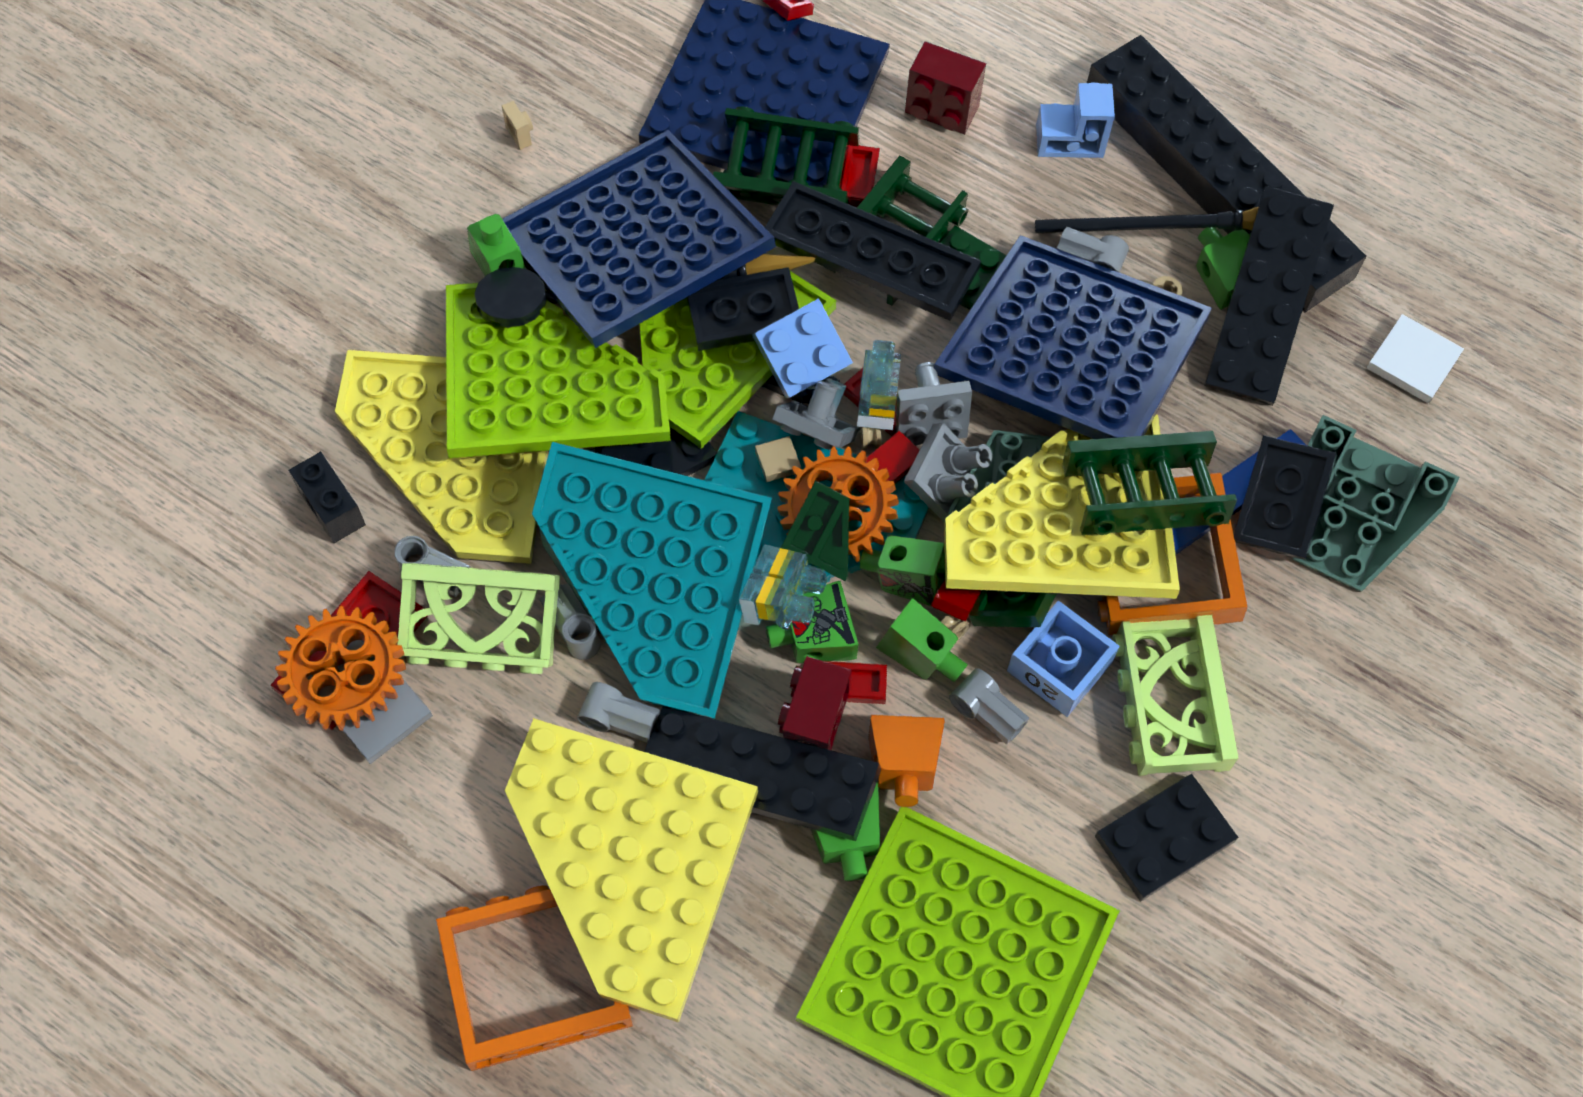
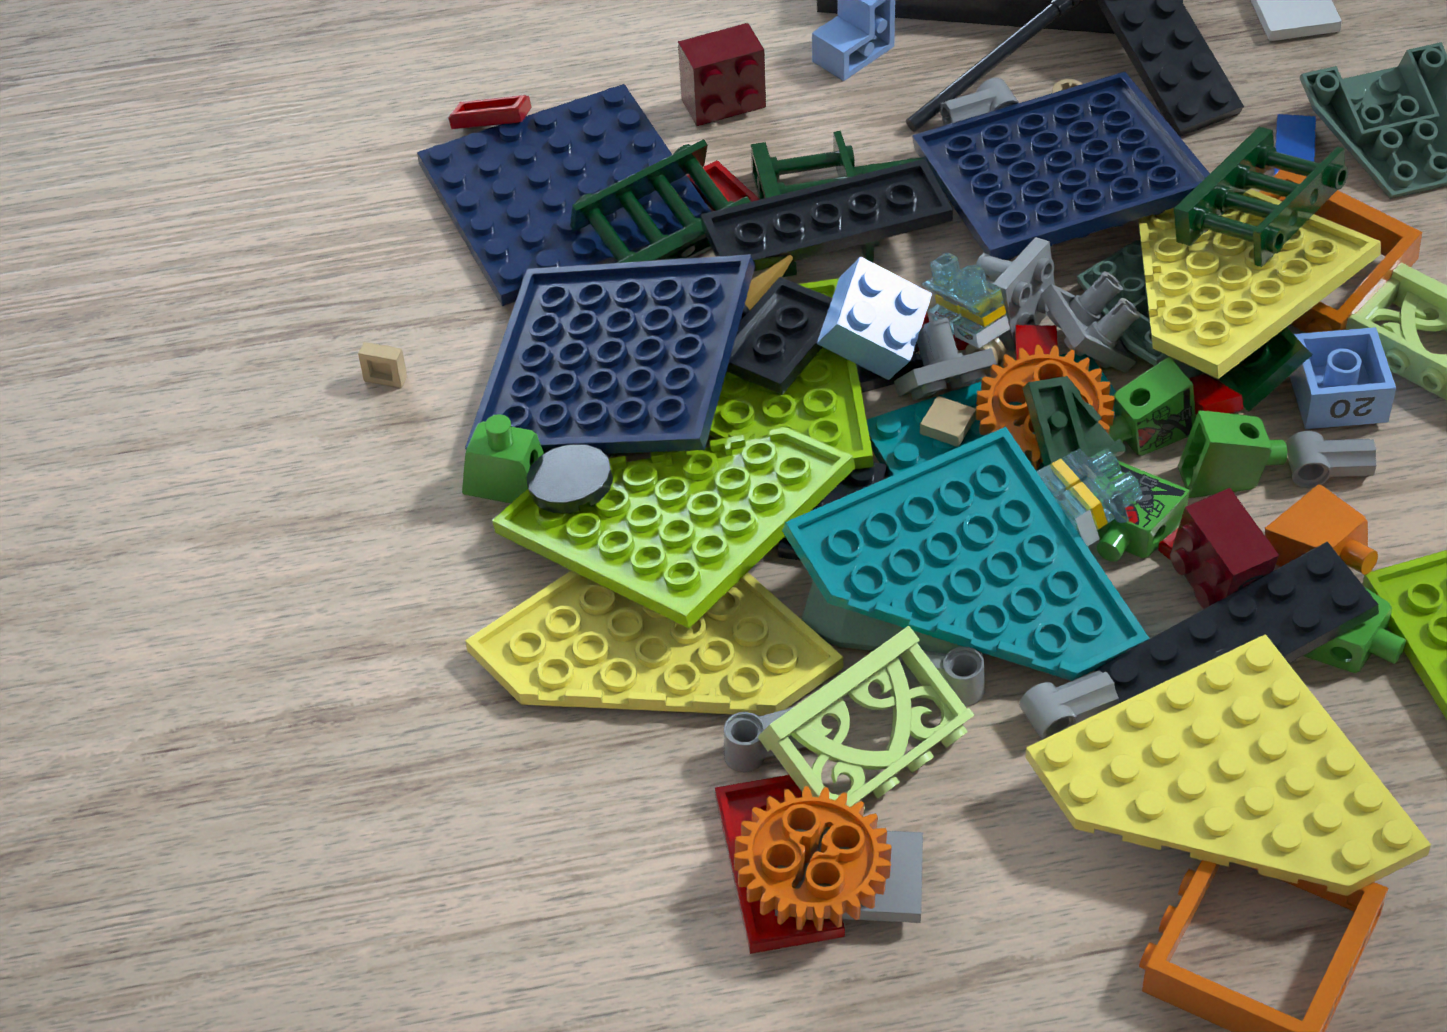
camera: 40 degrees left, 15 degrees down
(327, 497) = (605, 761): black brick -> none
(1221, 262) = (1087, 42): bright green torso -> none
(1284, 497) = (1343, 123): black plate -> none

